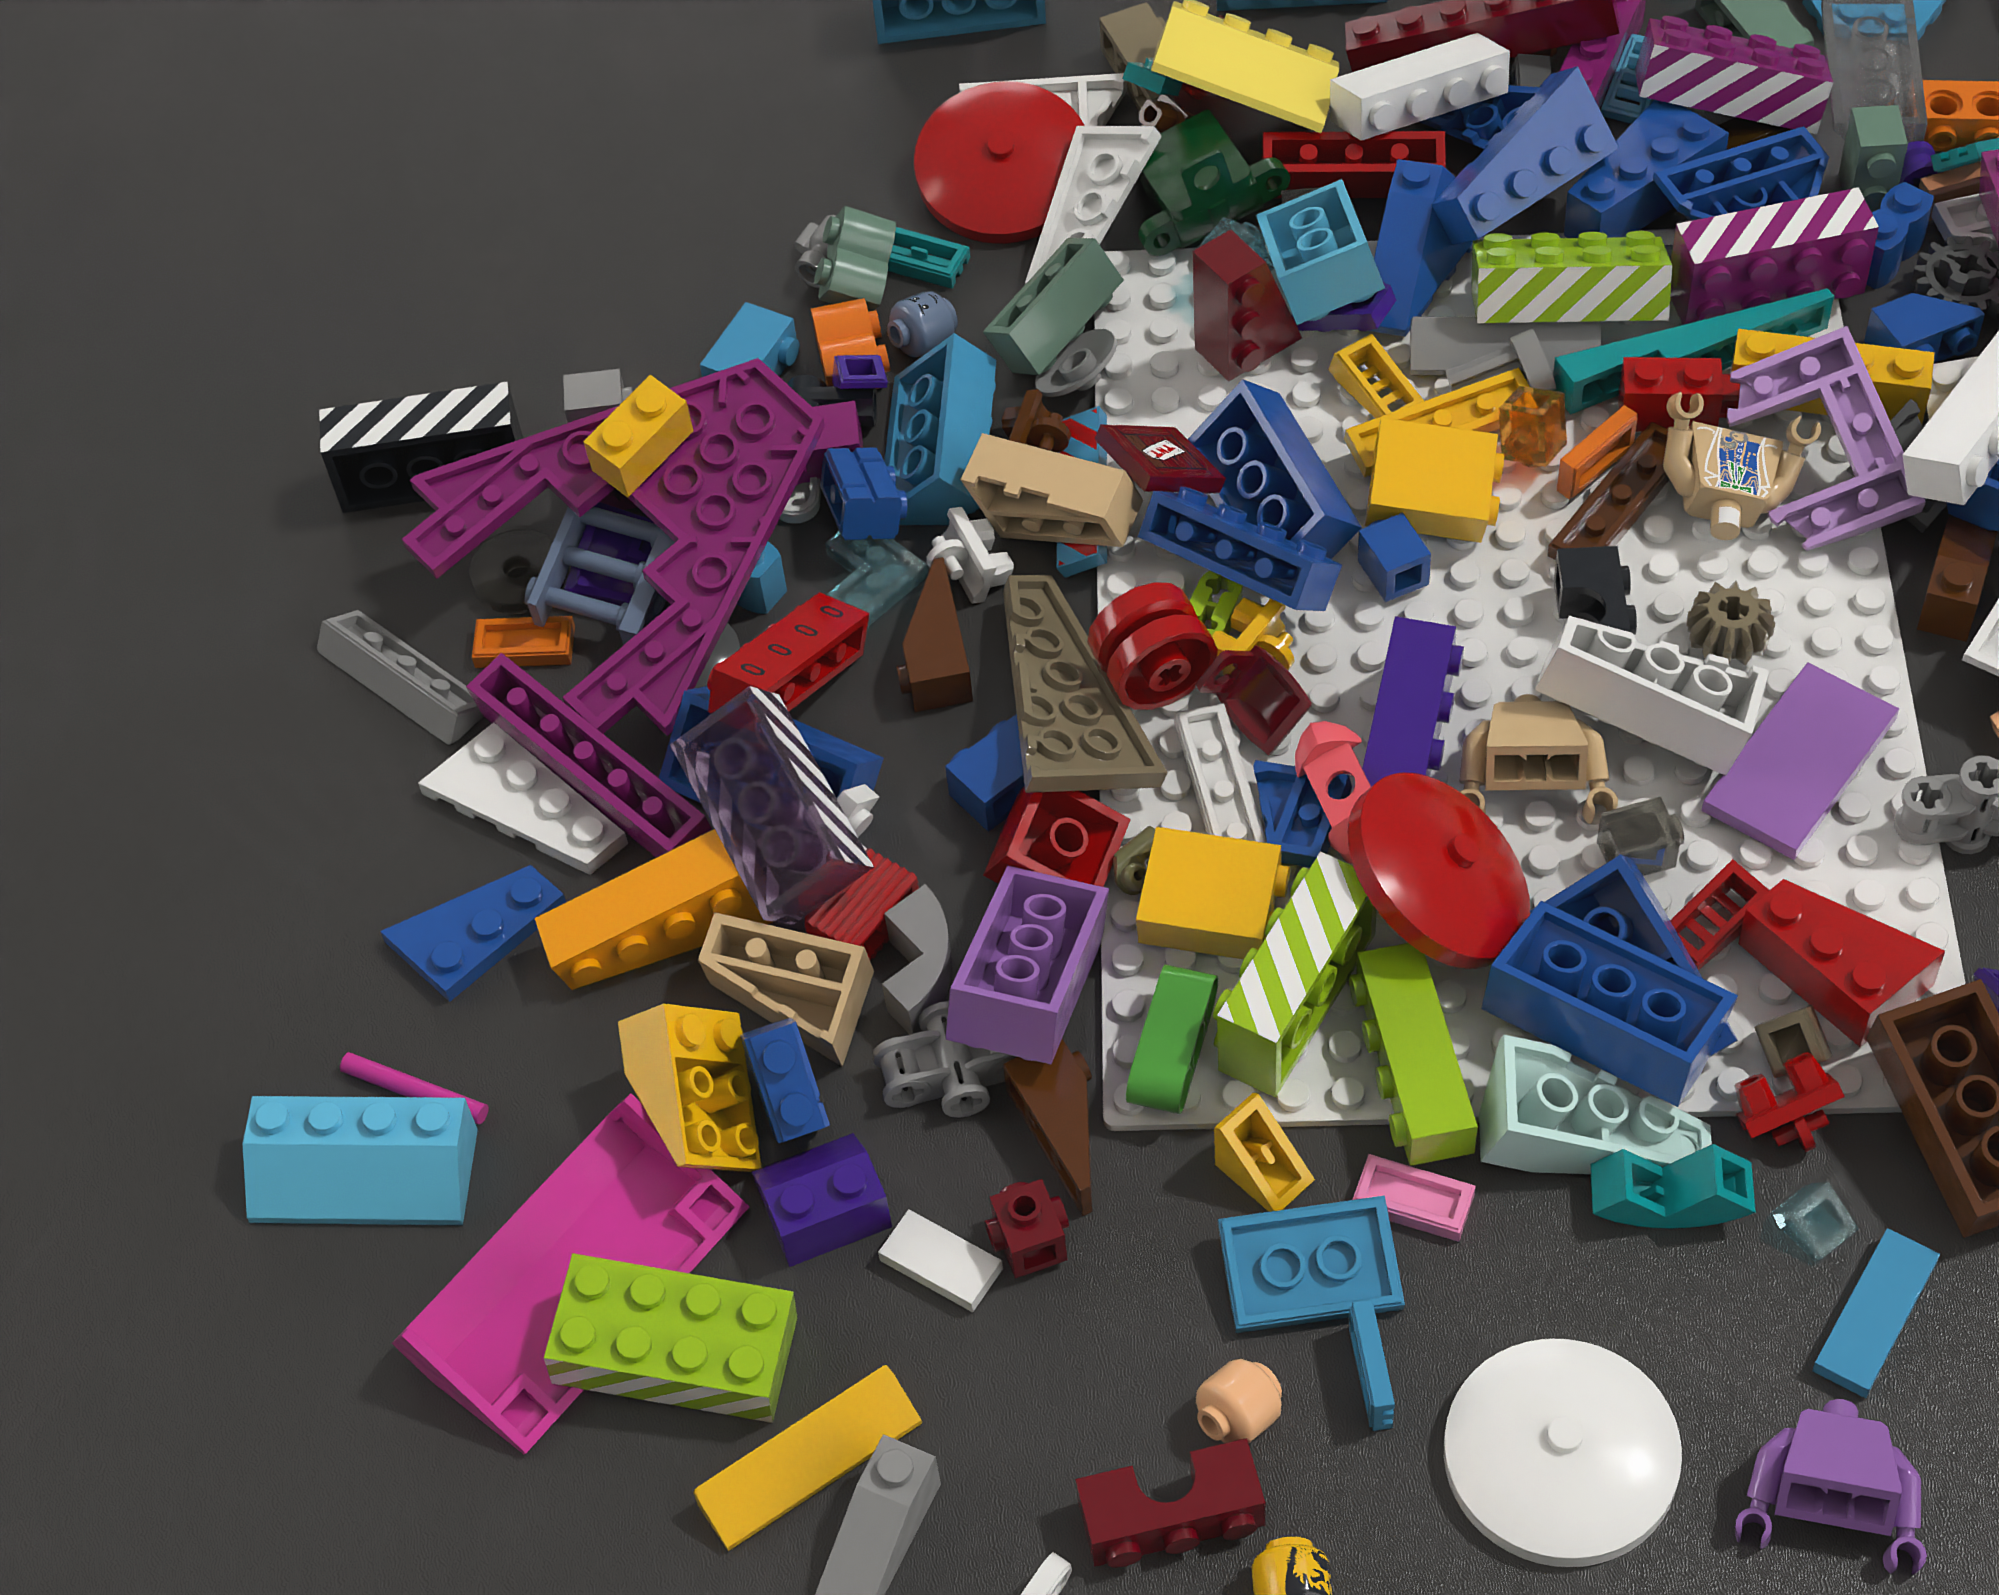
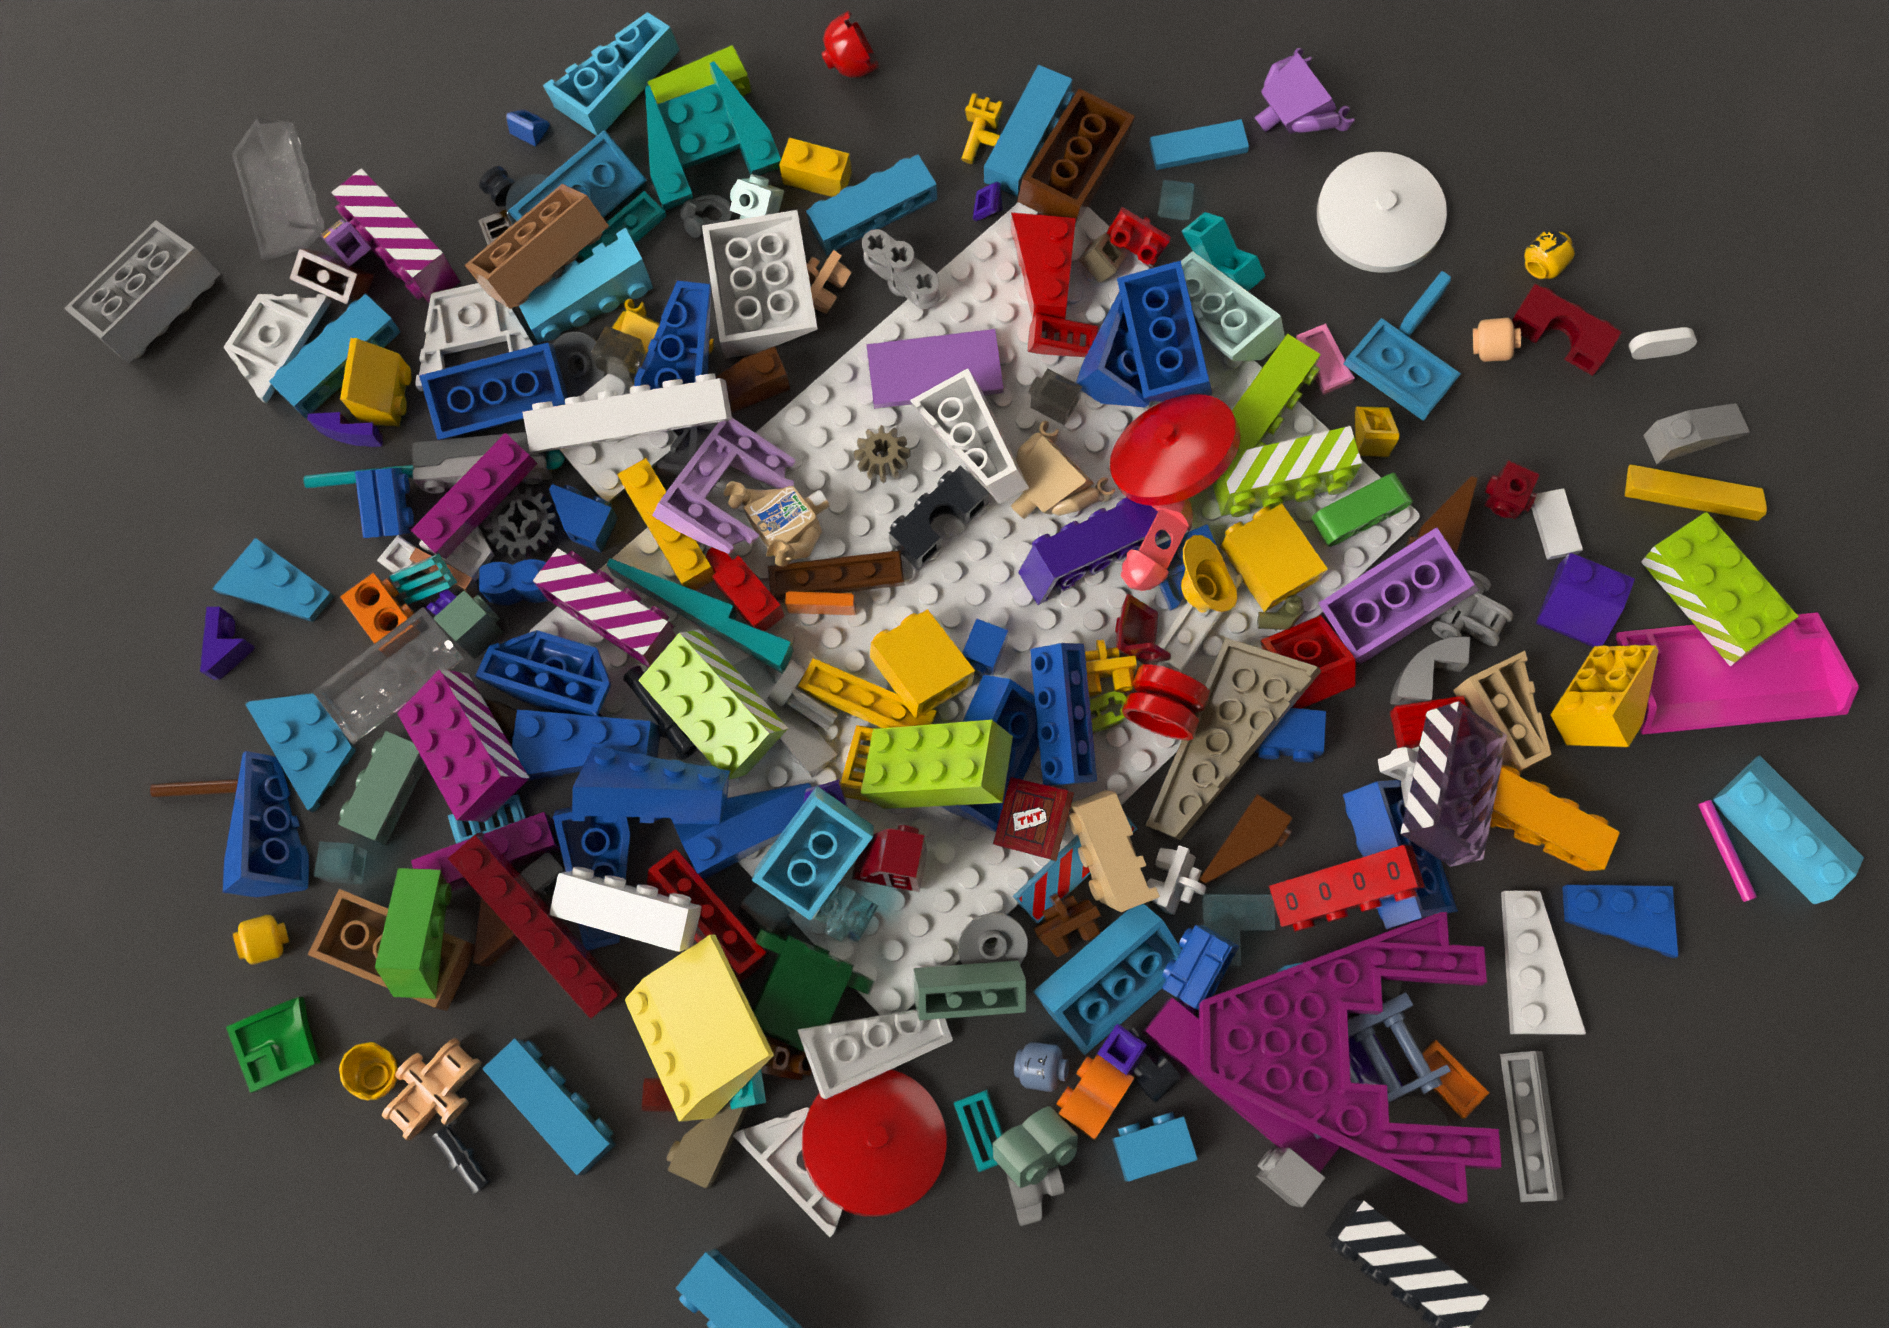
camera: 135 degrees left, 20 degrees up
(585, 758) = (1496, 927): magenta brick -> none
(638, 435) = (1326, 1078): yellow brick -> none
(784, 1080) = (1561, 656): blue brick -> none
(1250, 786) = (1206, 578): none -> yellow piece
(1296, 386) = (937, 765): none -> lime brick
(1532, 426) = (838, 642): clear orange brick -> none

